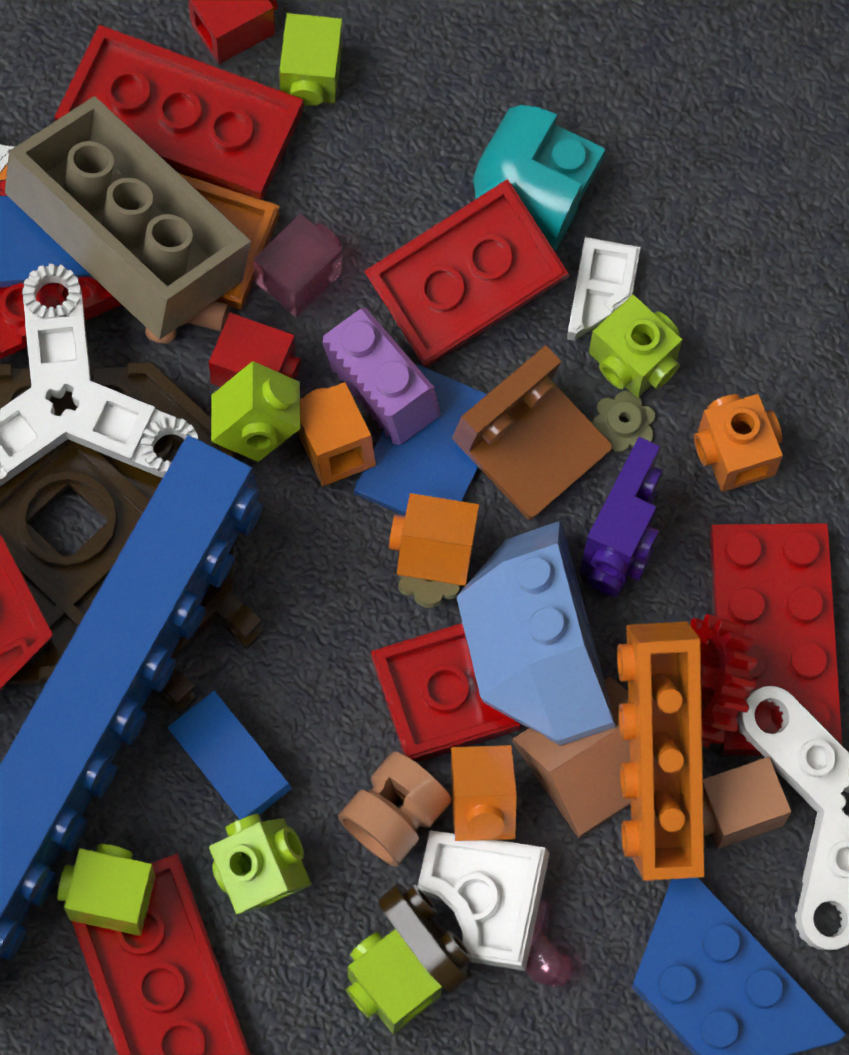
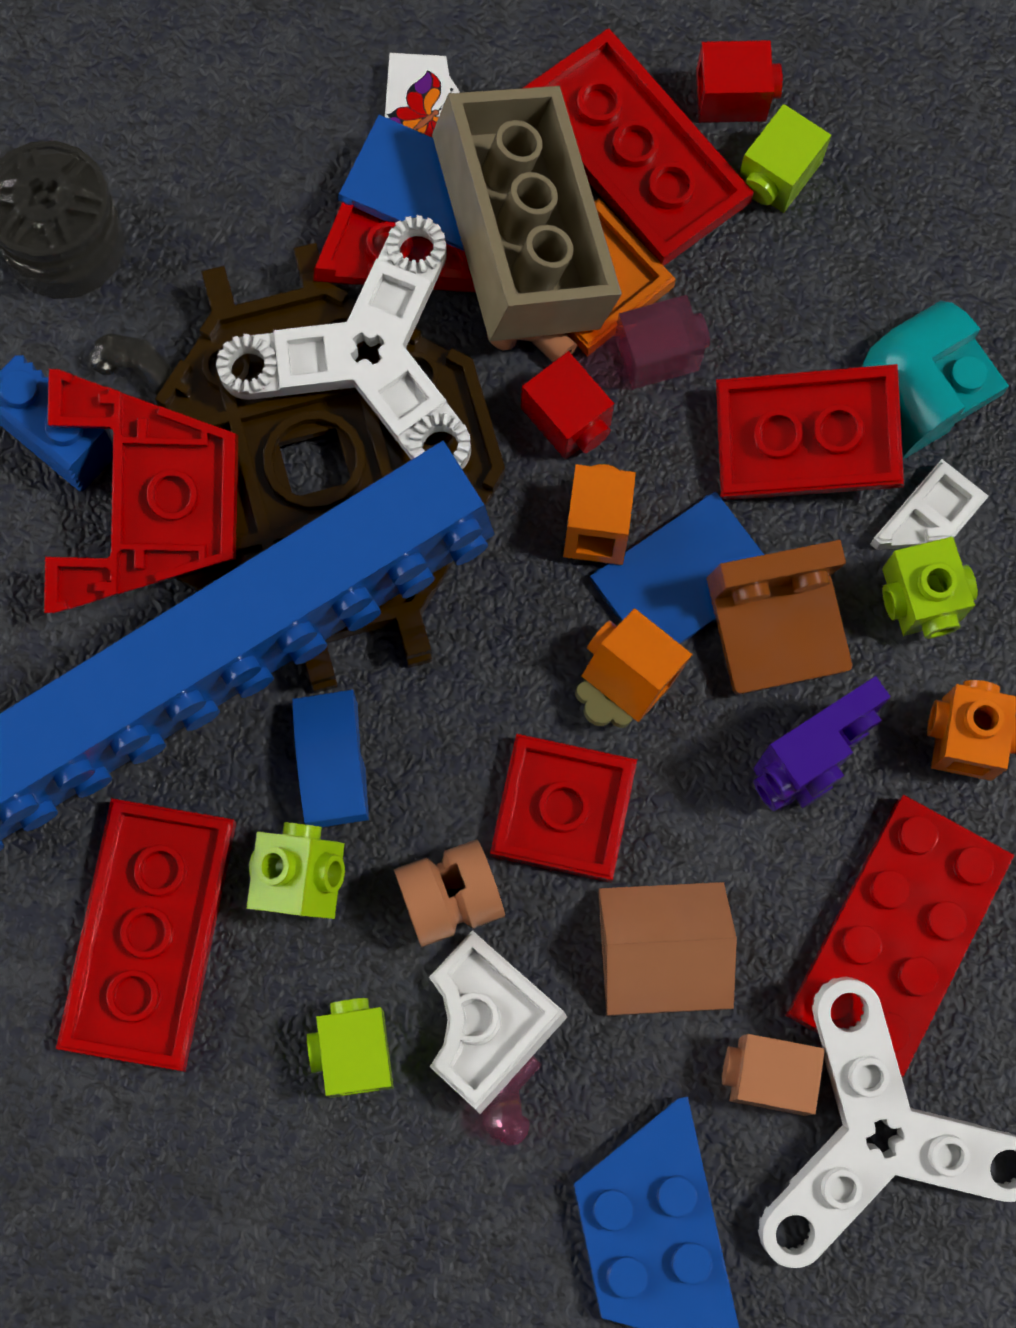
camera: 30 degrees right, 5 degrees up
(107, 889) = (146, 818): lime brick -> none
(255, 411) = (537, 454): lime brick -> none
(381, 376) = (673, 485): medium lavender brick -> none
(439, 953) = (406, 1050): dark brown plate -> none
(483, 793) = (537, 926): orange brick -> none
(535, 639) = (671, 809): medium blue wedge -> none
(622, 434) = (871, 663): olive plant -> none
(664, 750) = (726, 987): orange brick -> none
(723, 675) = (809, 943): red gear -> none

